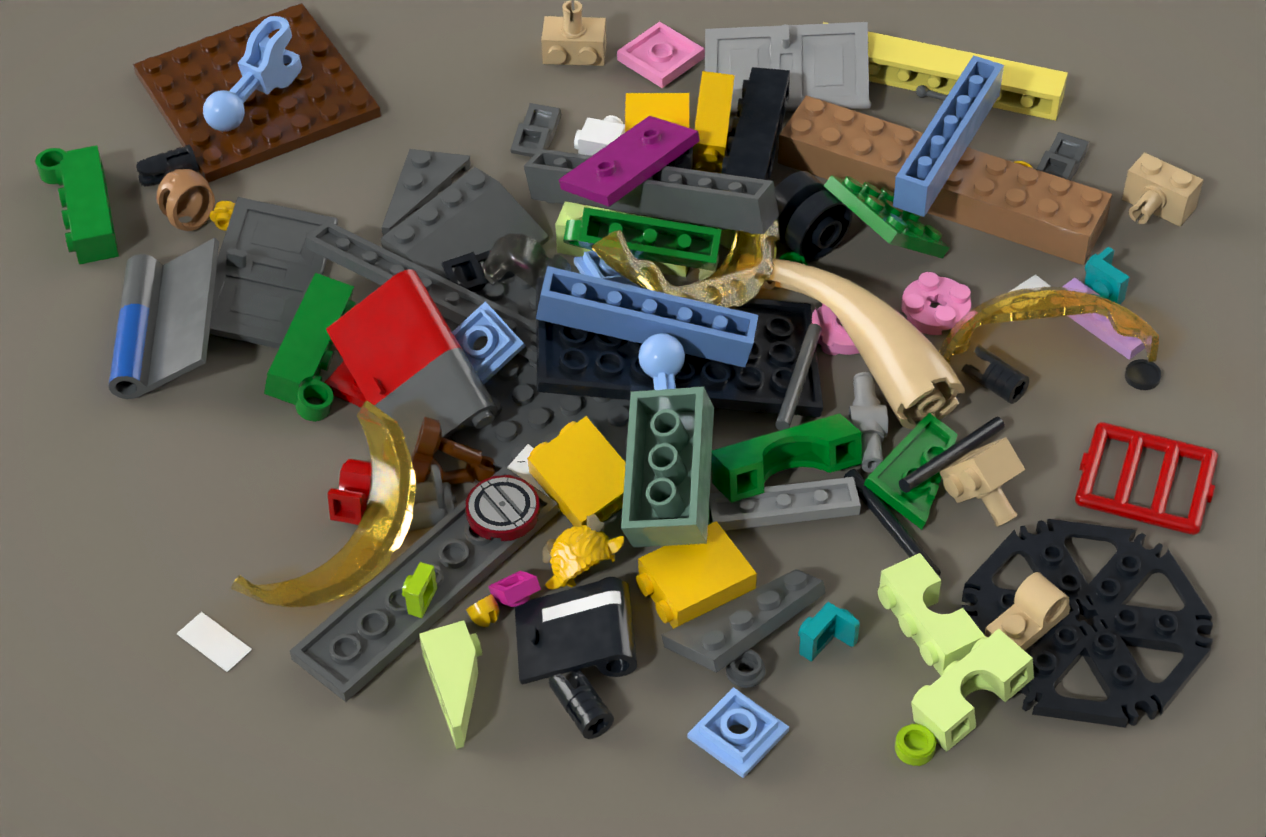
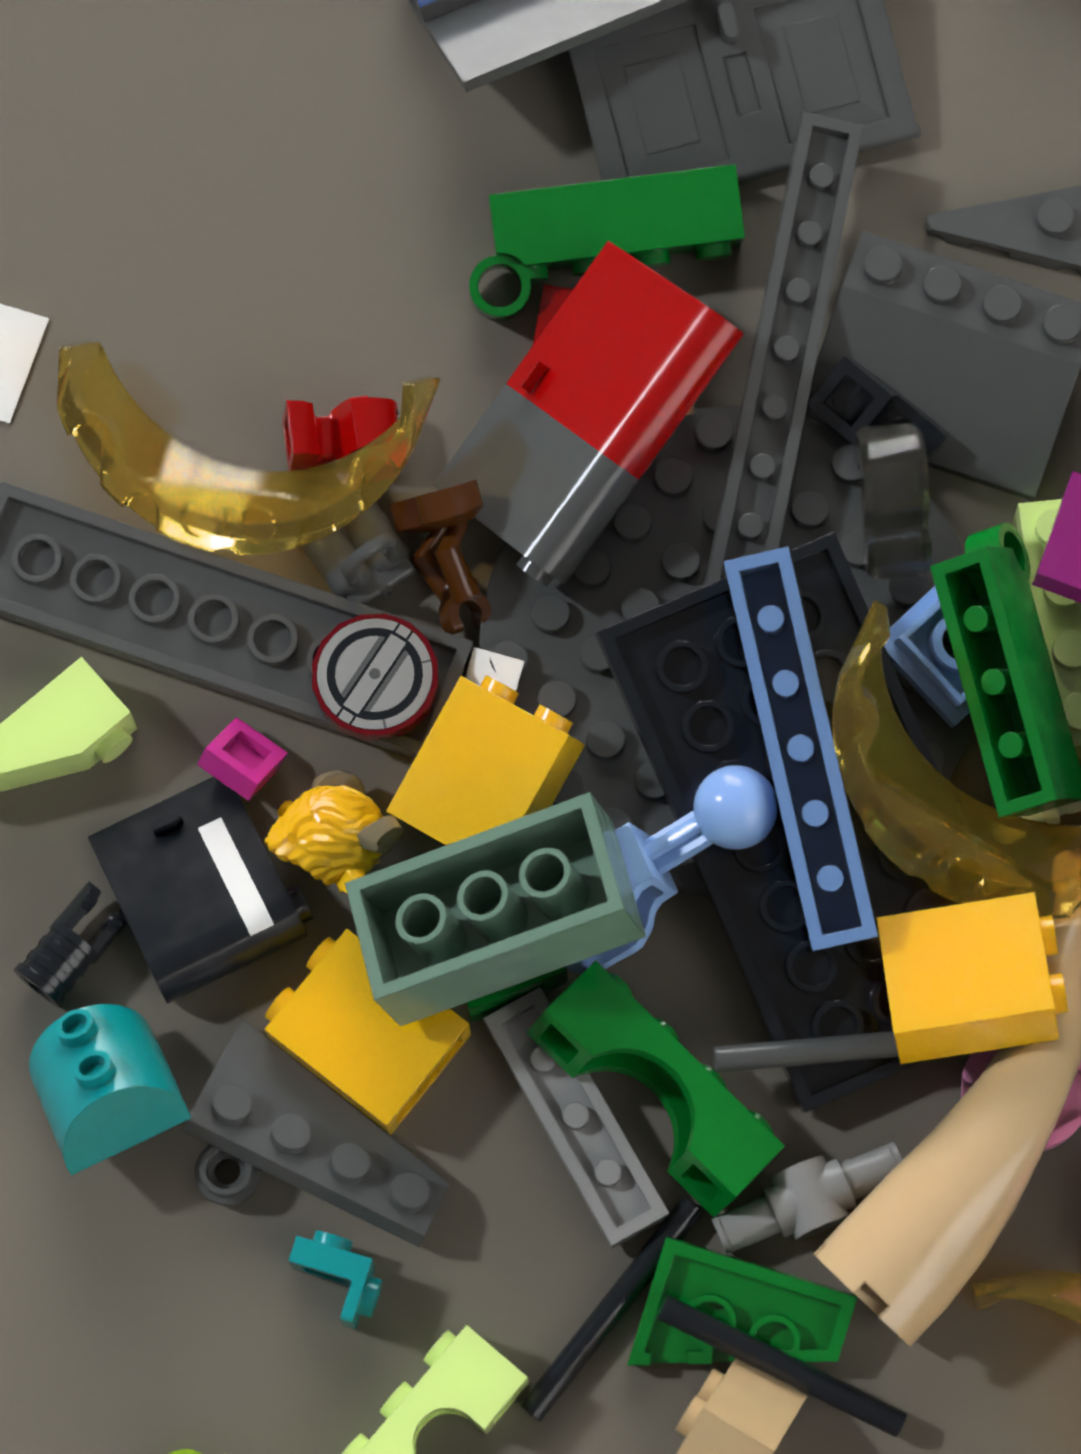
camera: 70 degrees right, 25 degrees up
(419, 589) = (157, 621): lime plate -> none
(484, 611) = (190, 728): yellow hinge -> none
(501, 343) = (697, 526): light blue piece -> none
(674, 701) = (103, 1083): none -> teal brick
(735, 750) = (129, 1234): light blue piece -> none
(792, 300) = (971, 977): none -> yellow brick
(998, 376) = (1010, 1387): black hinge -> none

